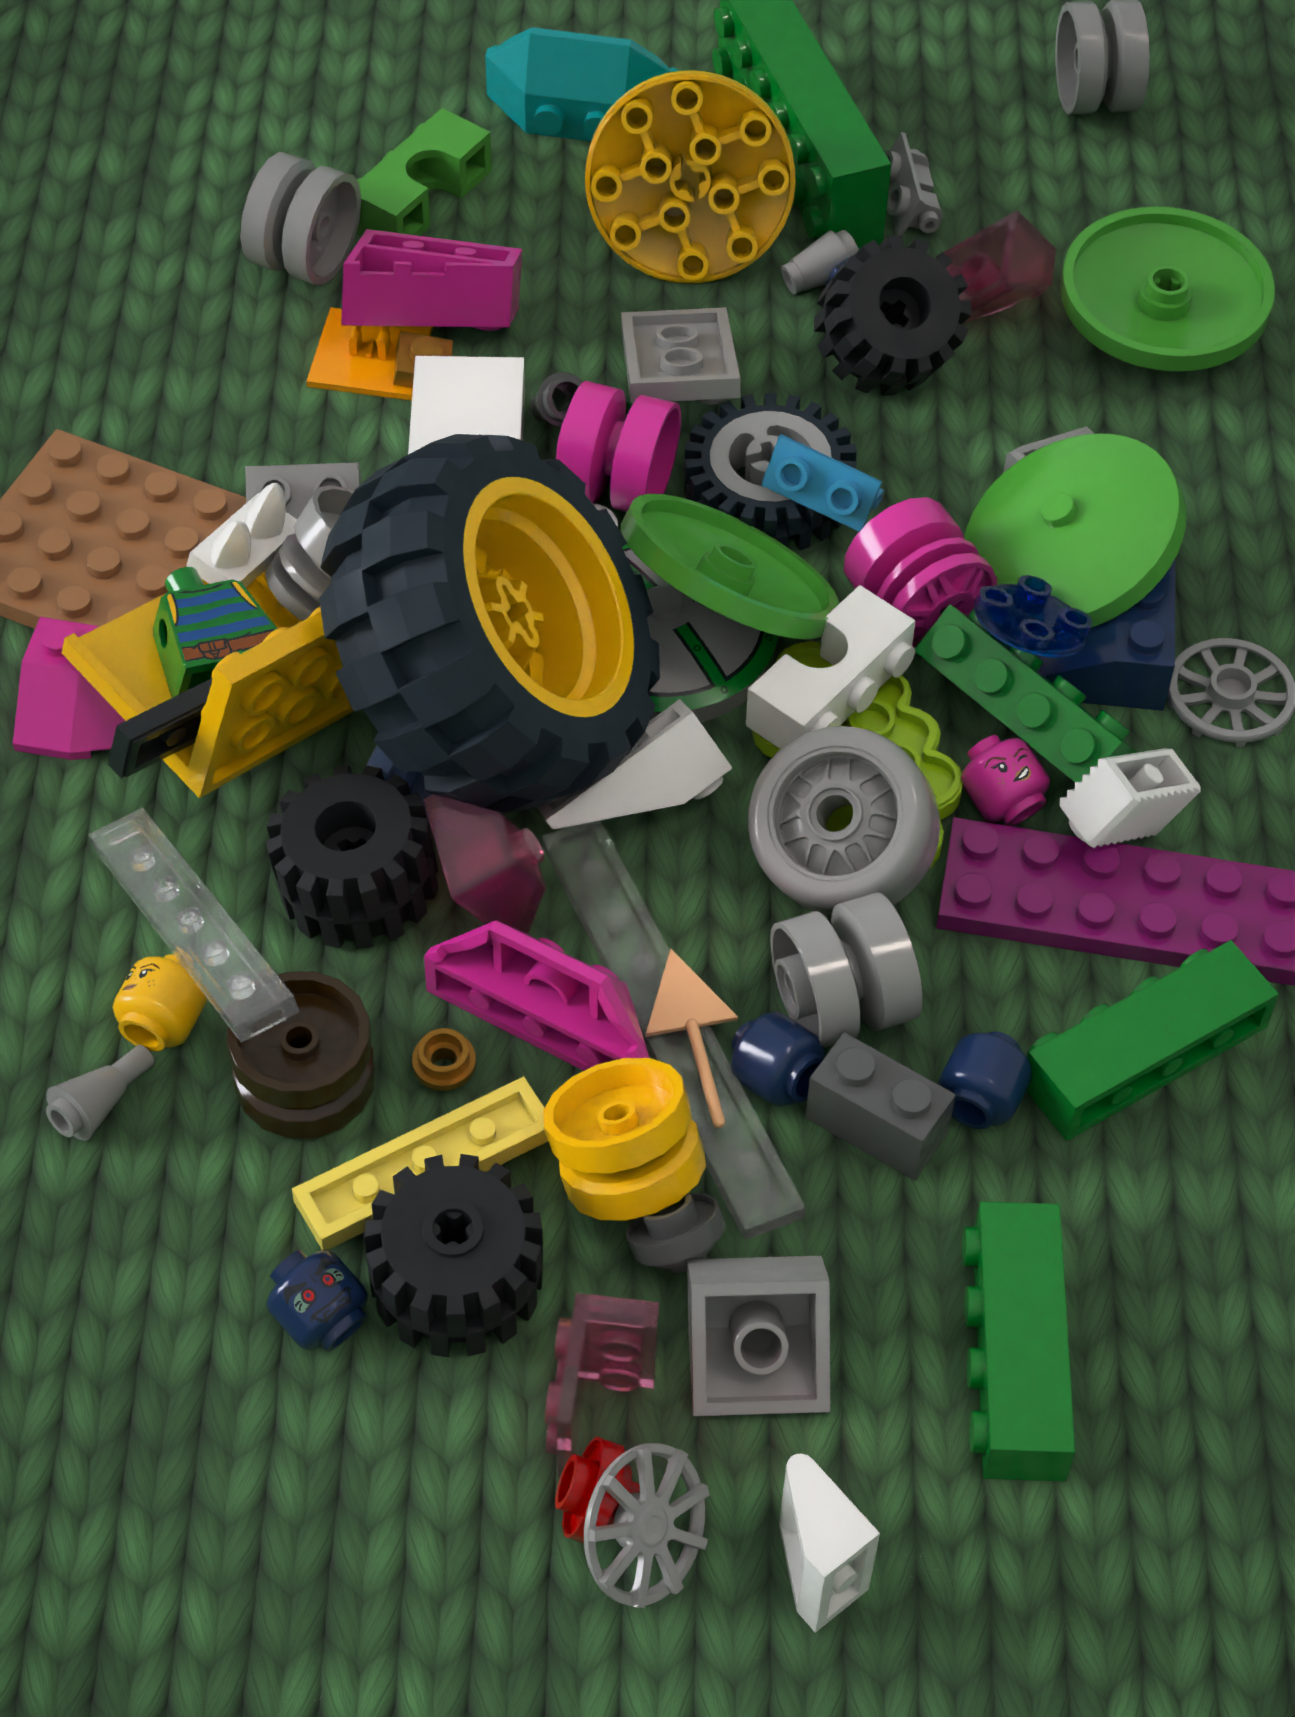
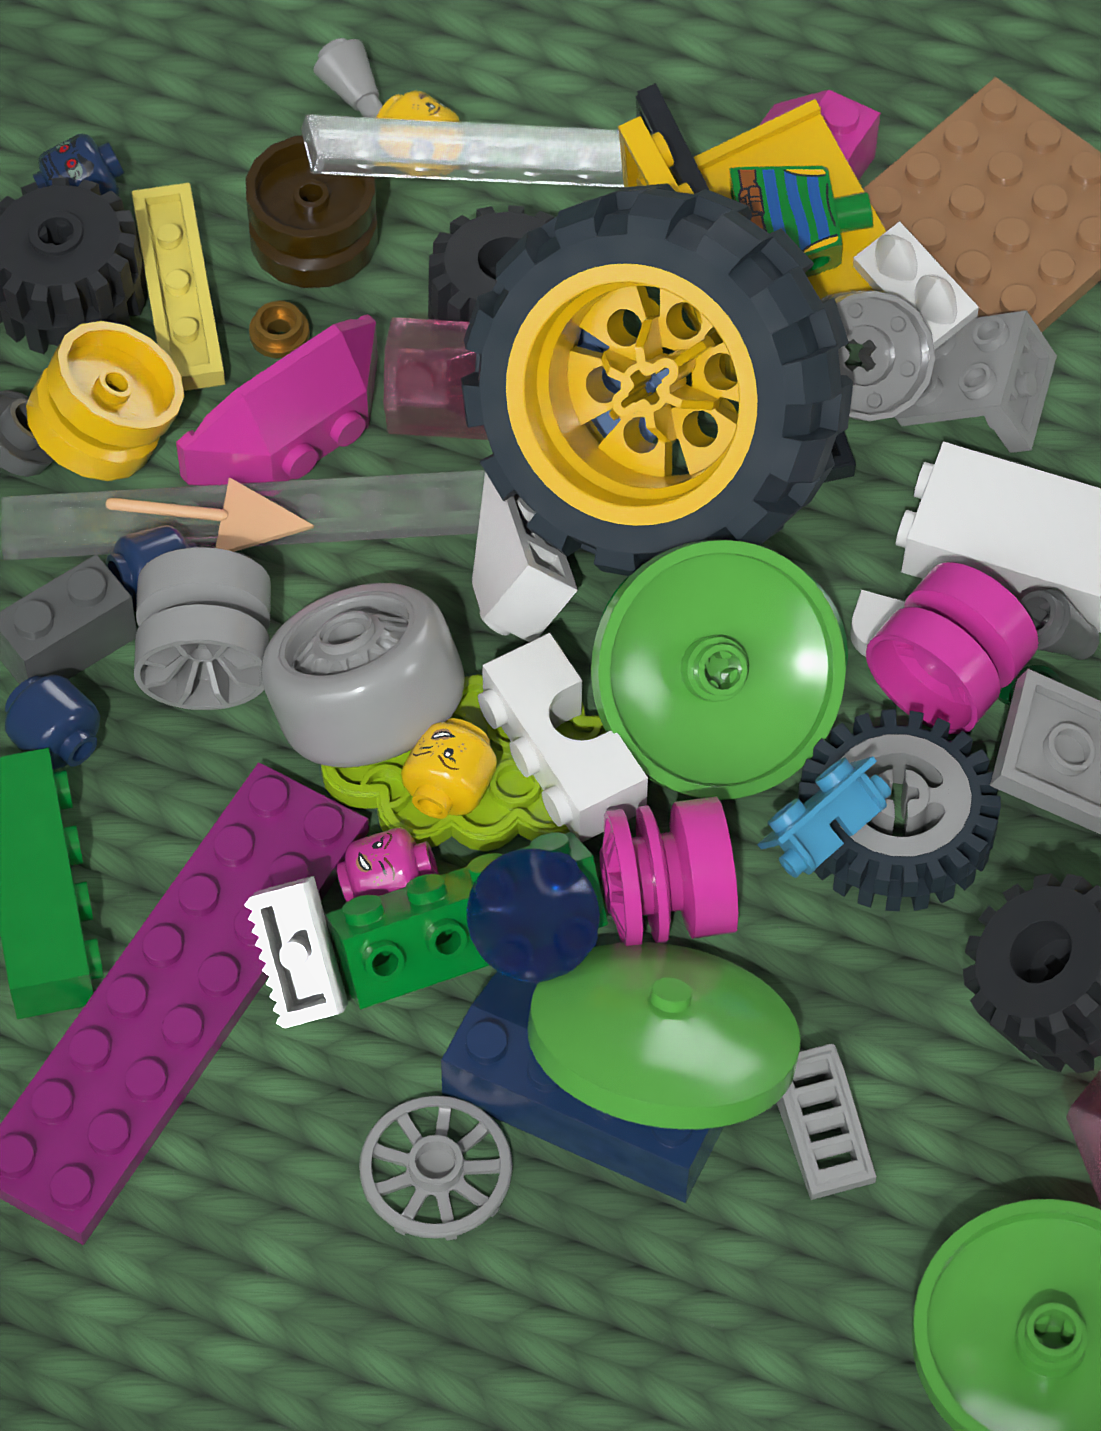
camera: 110 degrees right, 5 degrees up
(913, 729) = (449, 769): none -> yellow head

